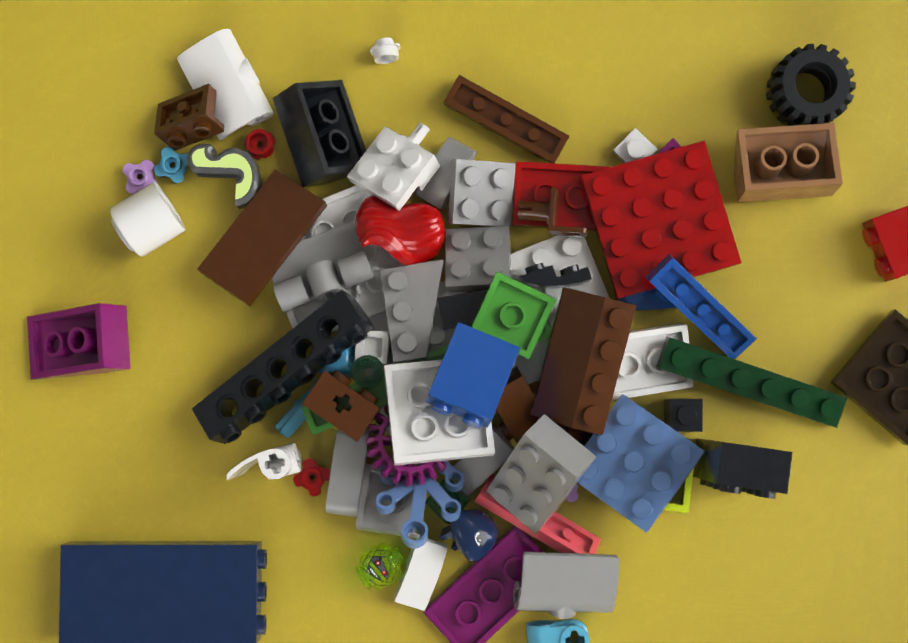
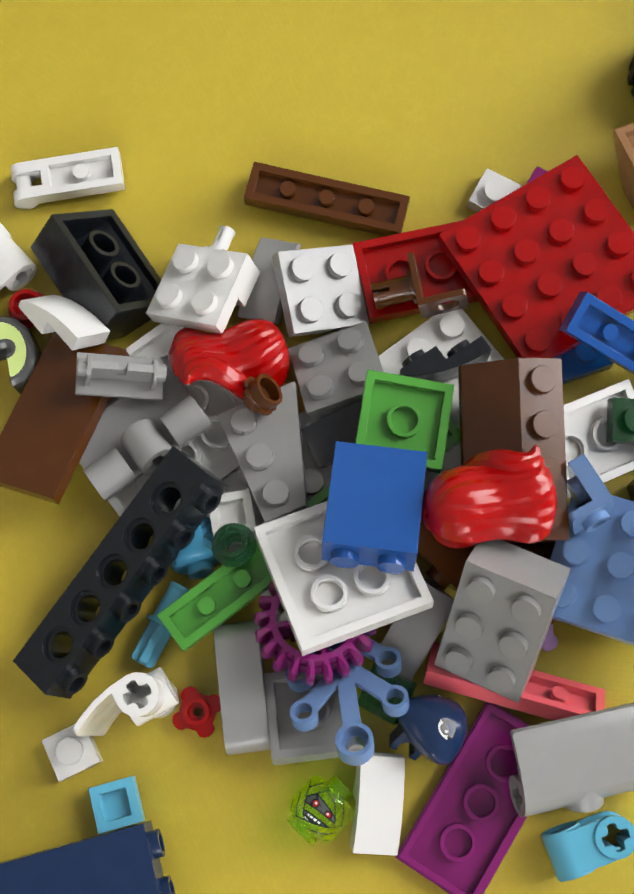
camera: 10 degrees left, 10 degrees down
(215, 482) = (71, 753): none -> white plate
(241, 525) = (116, 804): none -> medium azure plate
(287, 165) = (67, 318): none -> white slope
(314, 46) = (67, 177): none -> white plate
(316, 223) = (120, 376): none -> light grey hinge
(323, 403) = (185, 598): reddish brown brick -> none
(385, 51) = (157, 161): white plate -> none
(416, 266) = (262, 394): none -> reddish brown plate
(555, 394) = (492, 498): none -> red piece
(626, 402) = (588, 488): none -> medium blue bracket

